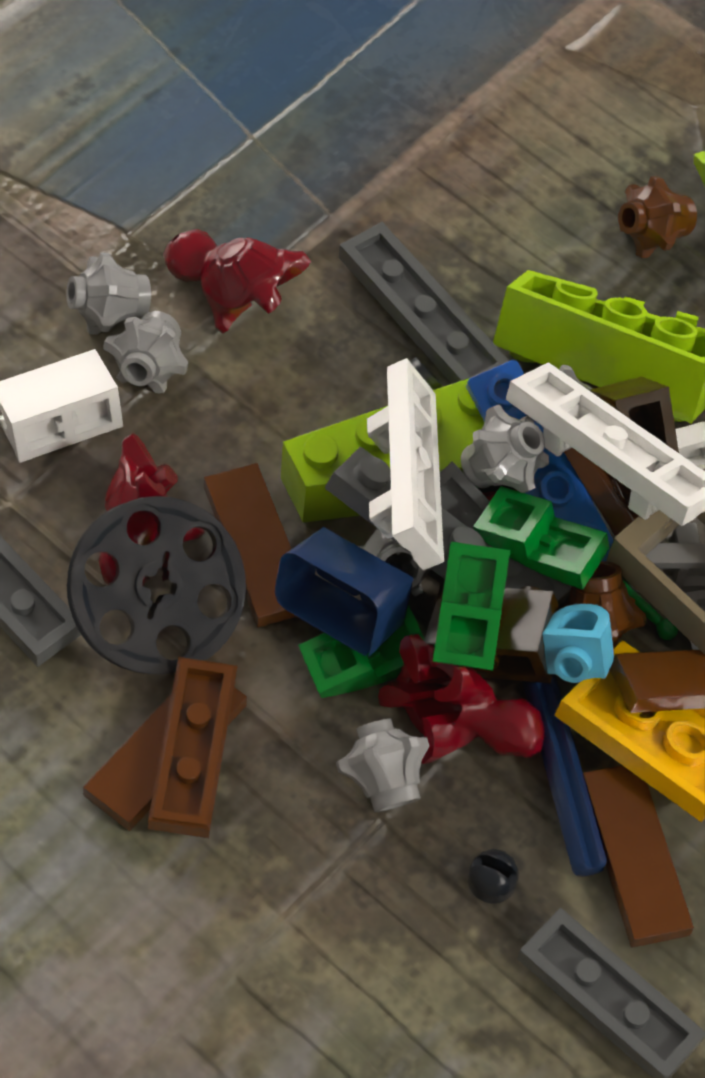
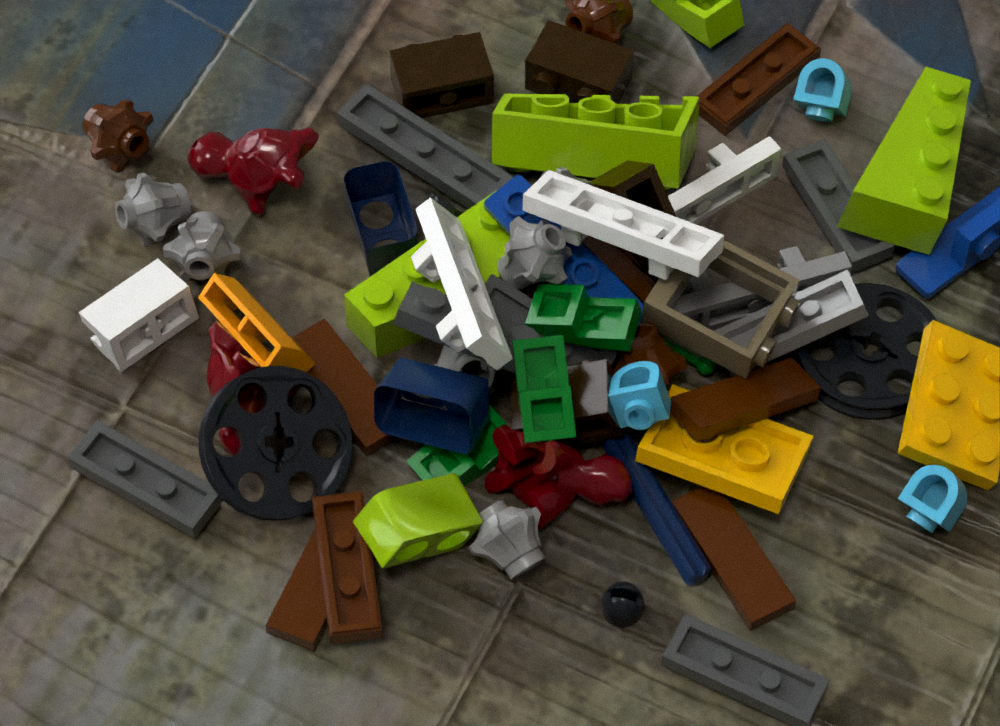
camera: 10 degrees left, 0 degrees up
(97, 205) = (117, 132): none -> reddish brown rock
(180, 451) = (223, 296): none -> light orange piece
(287, 715) = (418, 520): none -> lime piece
(361, 332) = (382, 184): none -> dark blue piece
(468, 235) = (442, 75): none -> dark brown brick
(619, 261) = (577, 65): none -> dark brown brick

